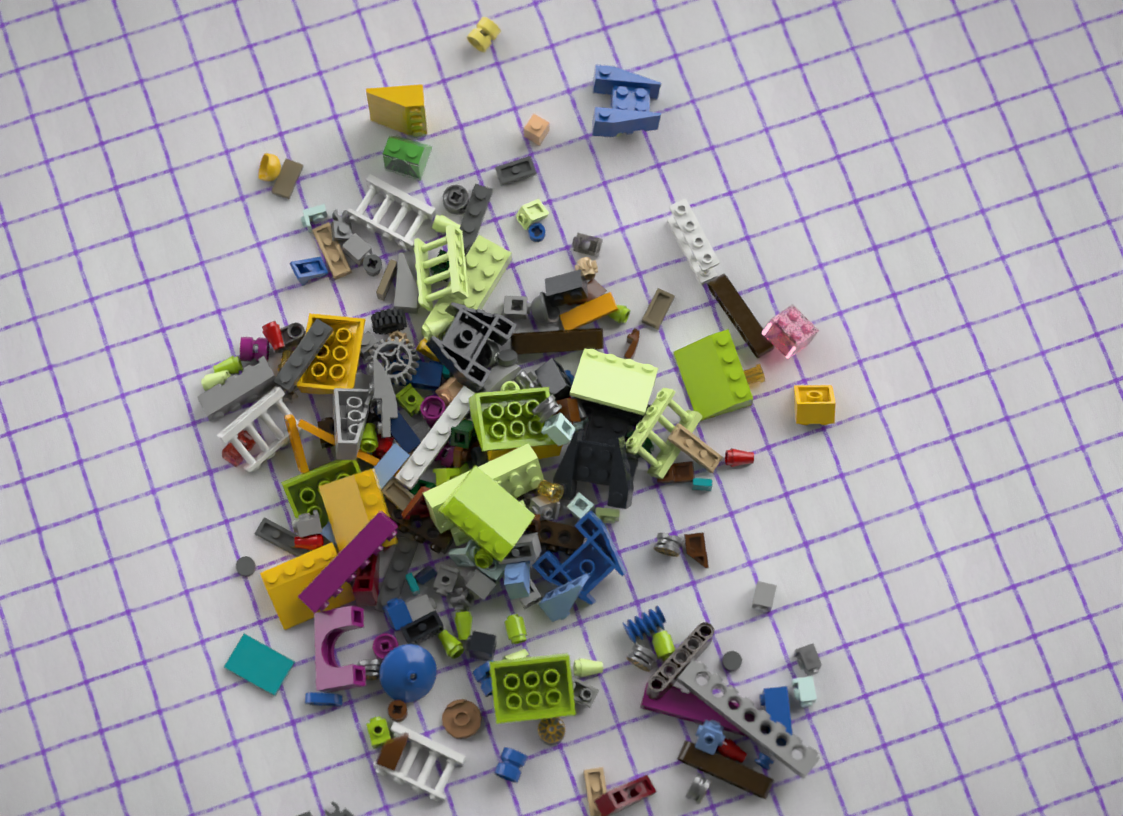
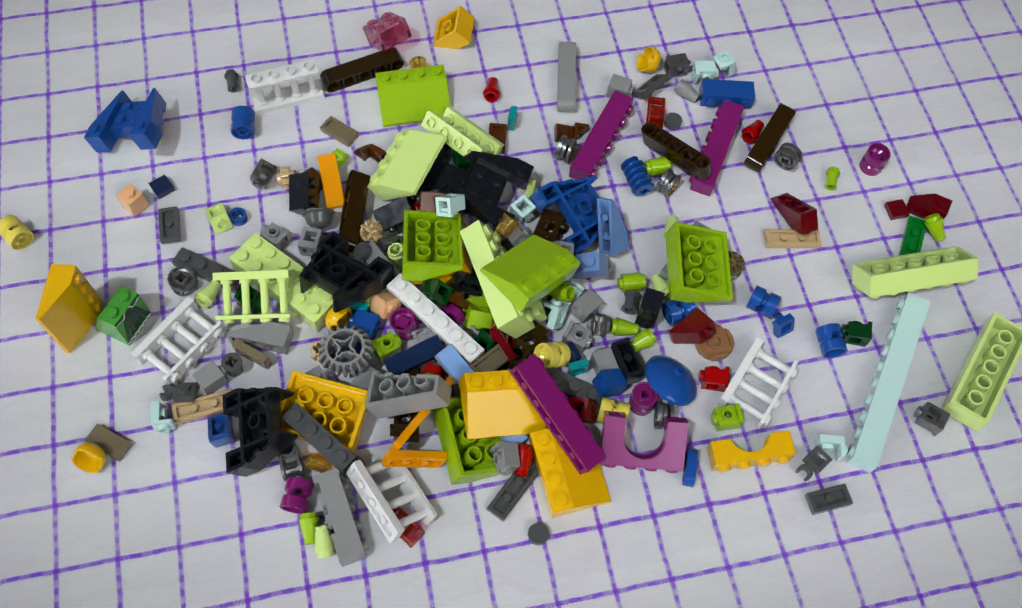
camera: 85 degrees left, 10 degrees down
(259, 664) = (647, 531): teal tile -> none
(273, 335) = (286, 468): red cone -> none
(309, 300) = (258, 428): none -> black wedge
(340, 732) = (726, 455): none -> yellow arch
(372, 616) = (609, 405): none -> light yellow wheel
(382, 390) = (378, 355): light grey slope -> none
(388, 321) = (298, 354): black tyre -> none
(392, 751) = (752, 400): reddish brown slope -> none
(395, 713) = (704, 402): reddish brown wheel -> none
(419, 555) = (553, 354): none -> light yellow wheel
(419, 717) = (714, 378): none -> red brick
(435, 328) = (321, 306): yellowish green cone -> none
(469, 693) = (693, 329): none -> dark red slope
(488, 786) = (782, 324): none -> blue tile
(494, 629) = (631, 302): none -> dark grey bush
(515, 278) = (276, 236): none -> light grey brick
(530, 361) = (371, 231): none -> tan gear
(546, 408) = (429, 208): flat silver wheel -> none
(560, 151) = (161, 186): none -> dark blue tile
(646, 210) = (243, 122): none -> blue wheel
(693, 582) = (601, 136): none -> magenta brick
(694, 448) = (479, 116): tan tile -> none
(702, 186) = (231, 77): none -> dark grey pin
(709, 736) = (745, 138): medium blue brick -> none
(725, 646) = (655, 113): none -> clear red slope
(751, 729) = (733, 104): light grey brick -> none
(764, 761) = (763, 109): blue bush -> none
(771, 536) = (566, 76): none -> light grey beam
(774, 631) = (655, 83): none -> dark grey plate
(775, 673) = (686, 90): none -> light grey cone
(808, 626) = (649, 60): none -> yellow hair
(819, 712) = (725, 62): none -> light aqua bracket

